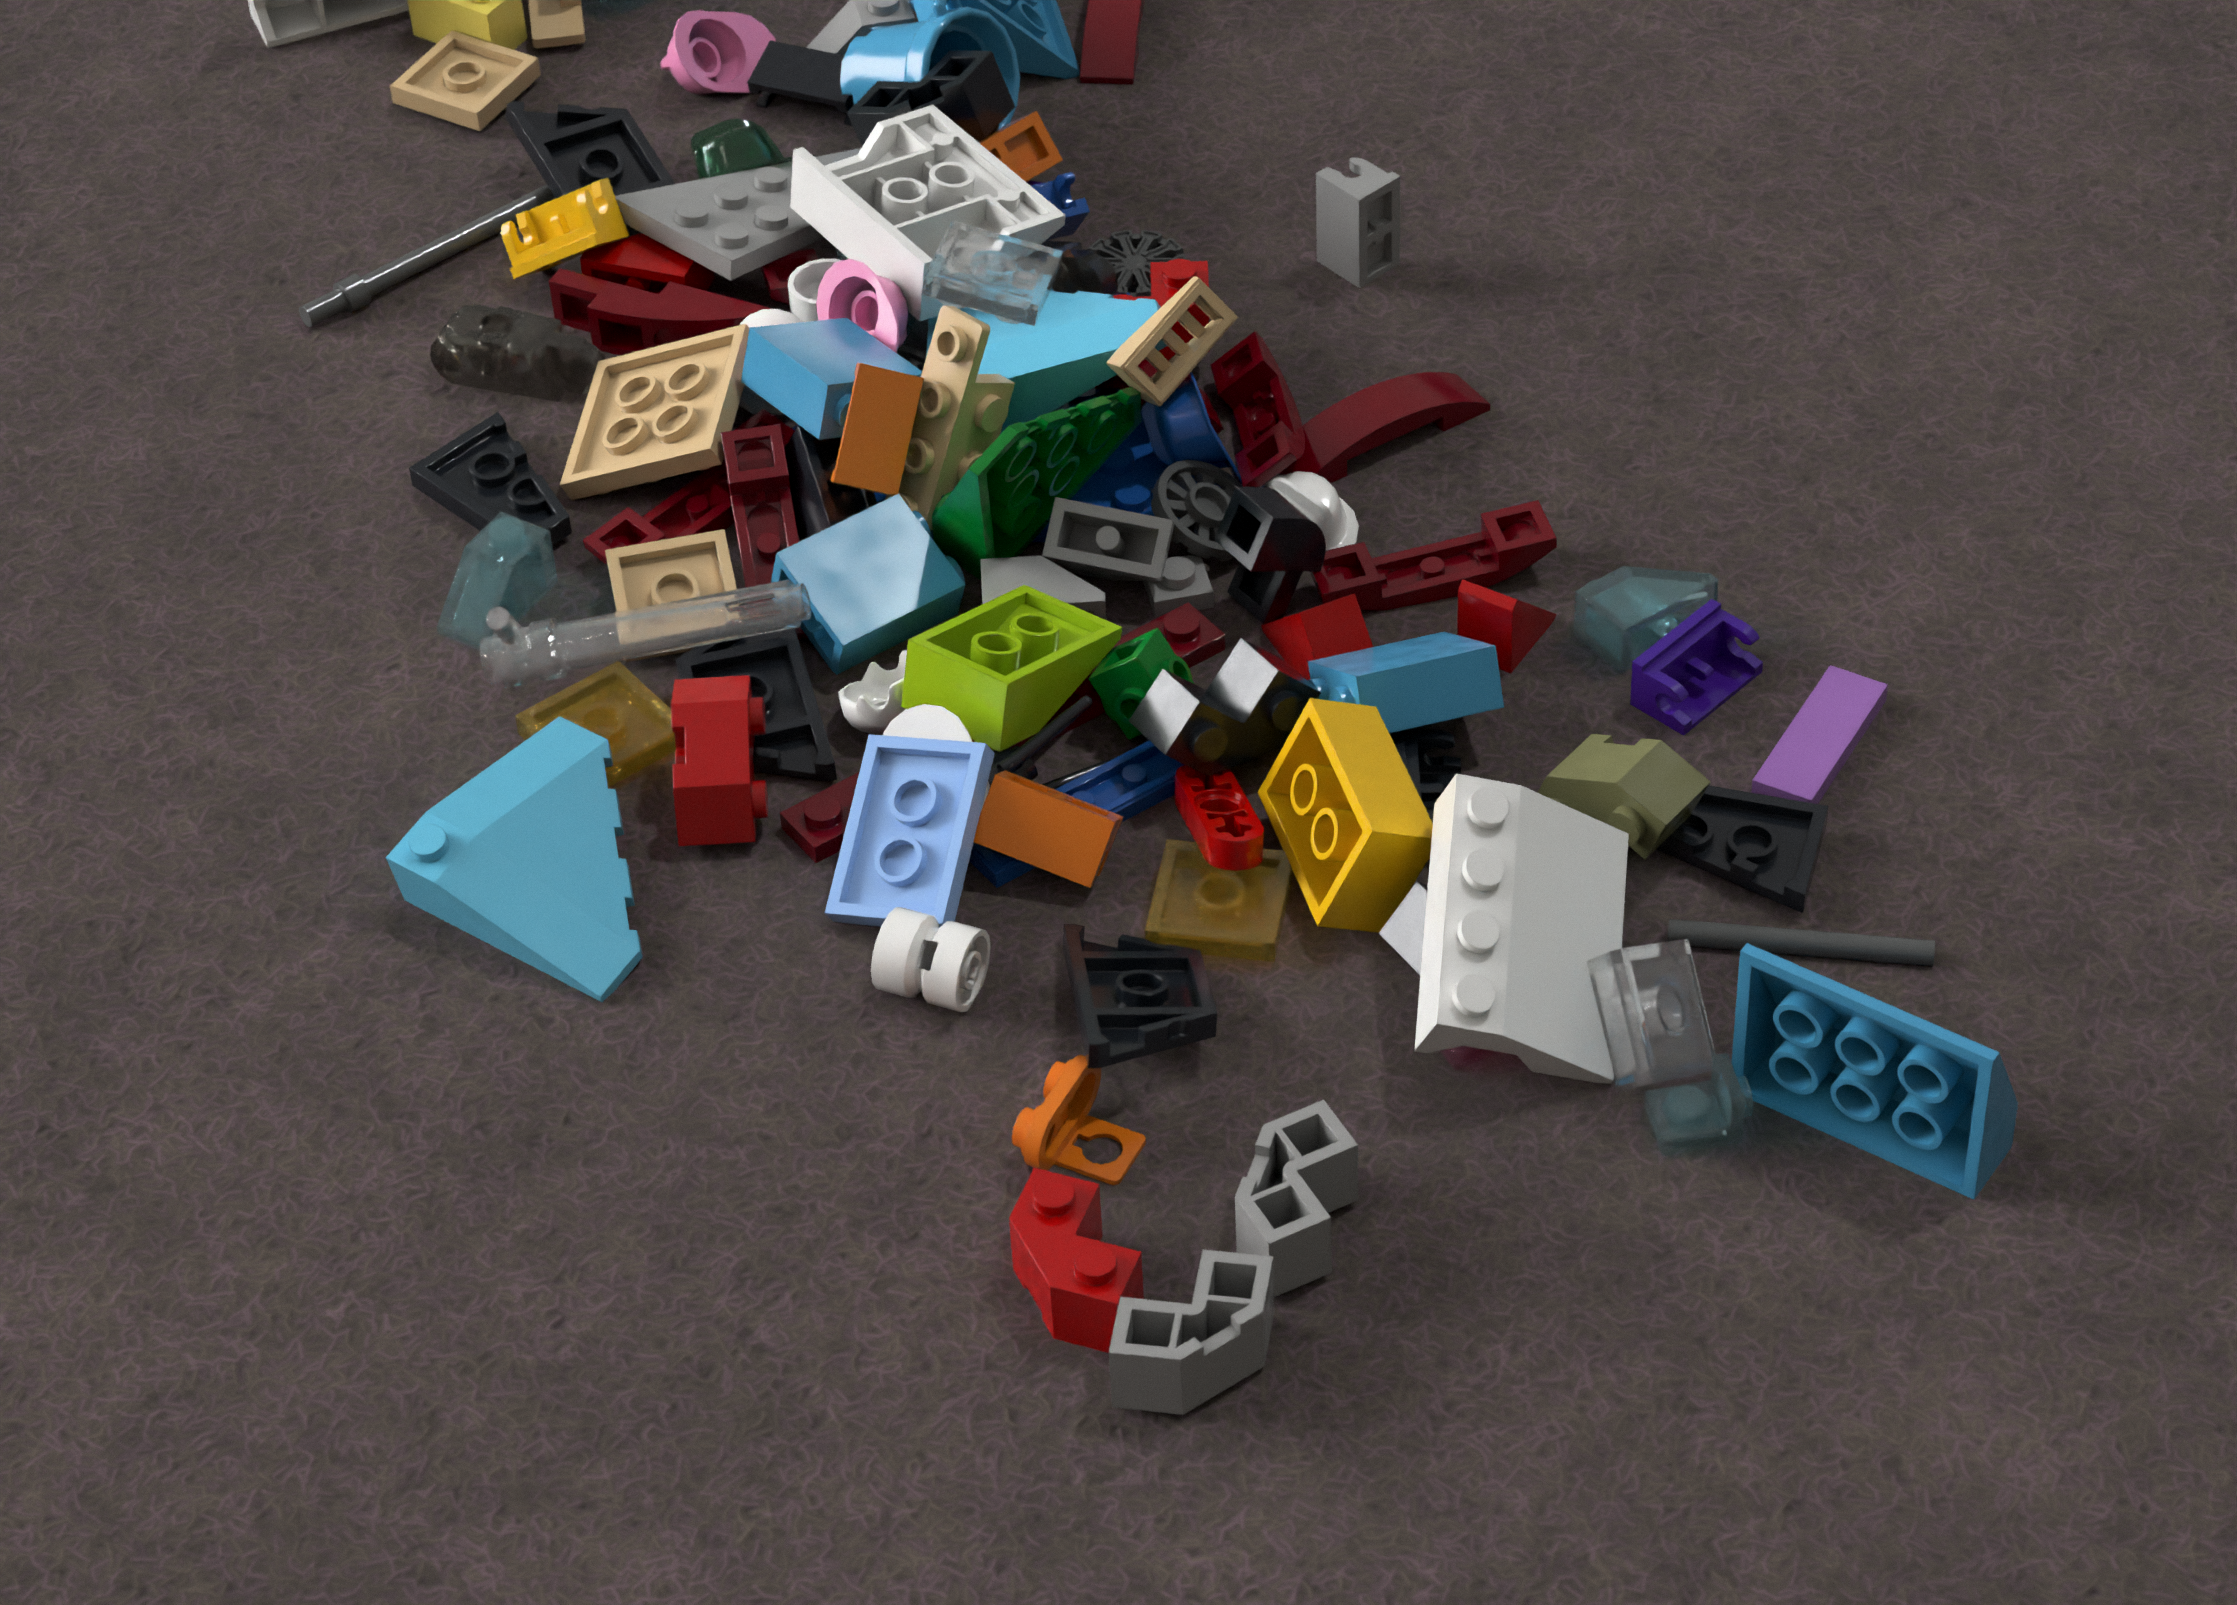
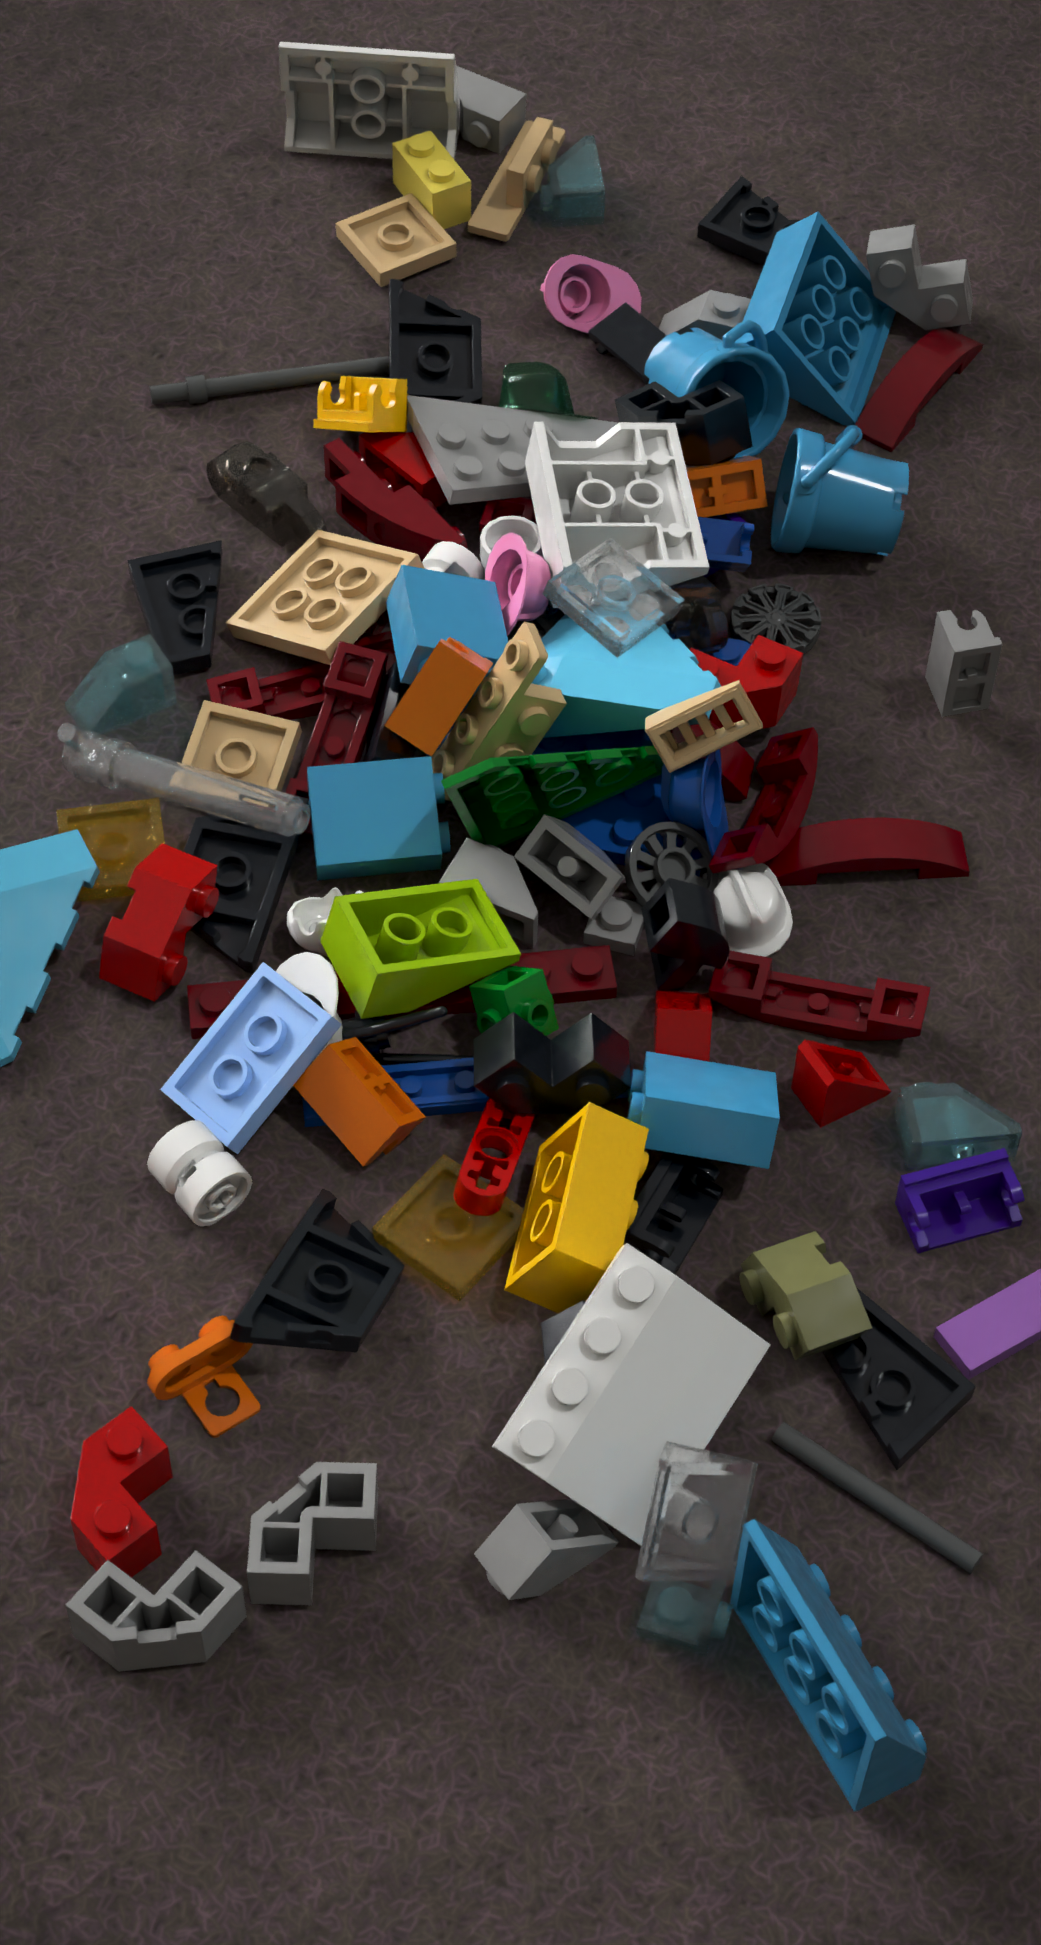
camera: 25 degrees right, 10 degrees up
(1125, 124) = (837, 496): none -> dark azure piece
(1522, 1118) = (542, 1547): none -> light grey slope

